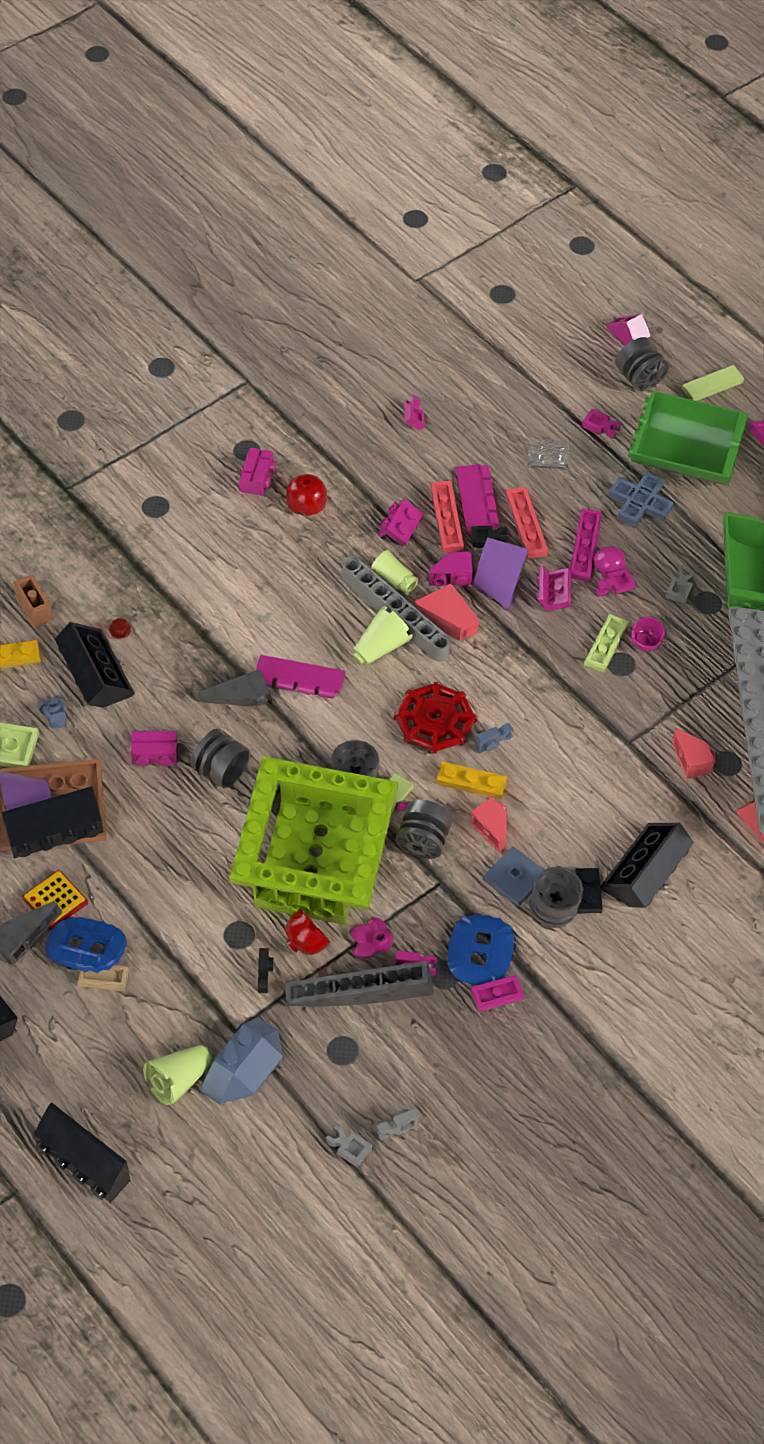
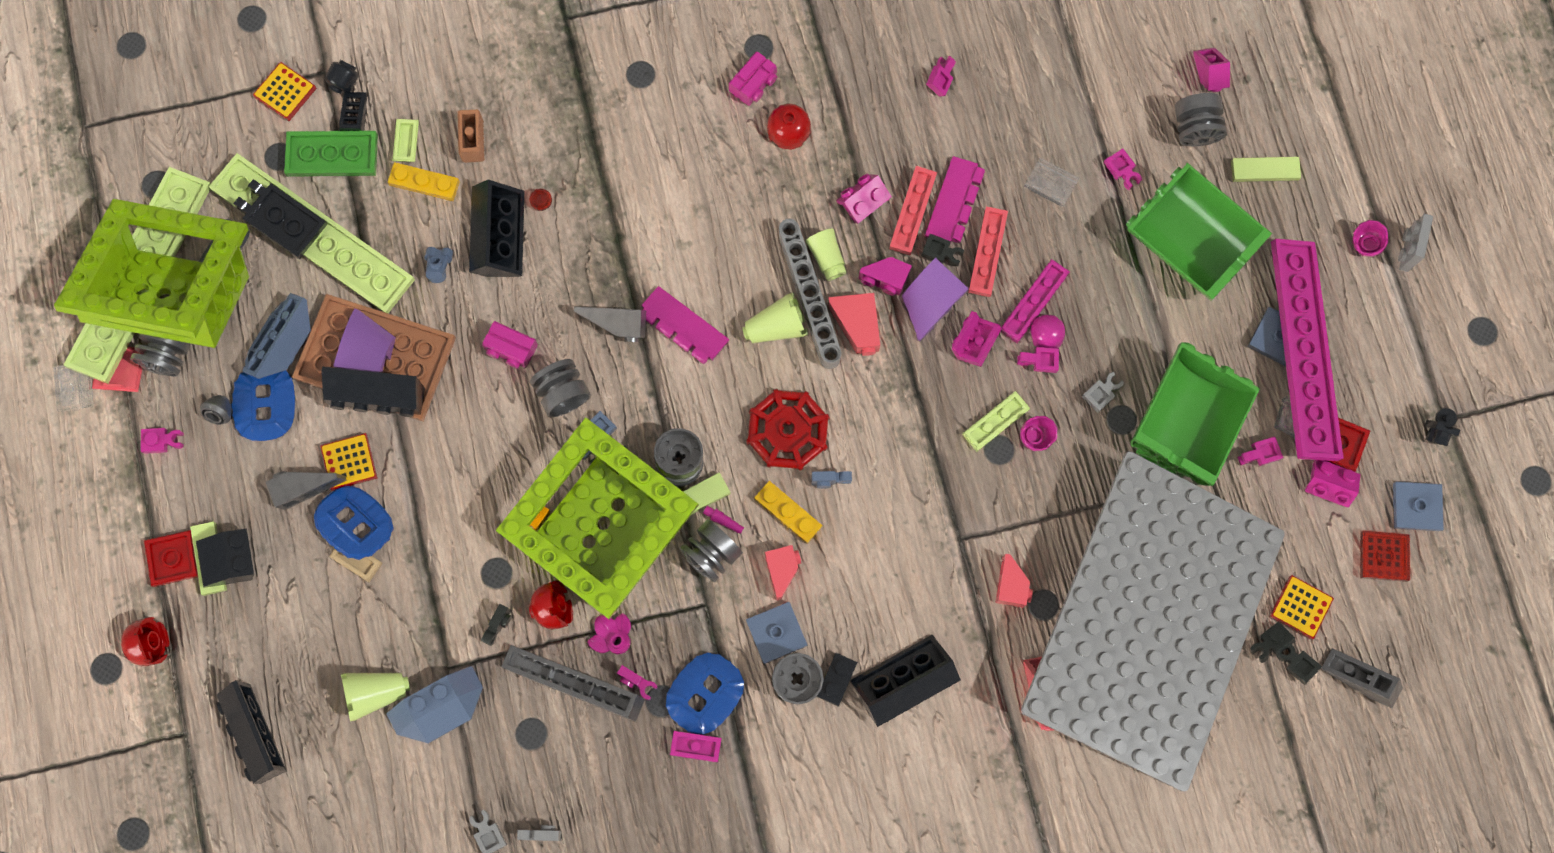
camera: 25 degrees right, 20 degrees up
(641, 499) = (1117, 274): sand blue plate -> none

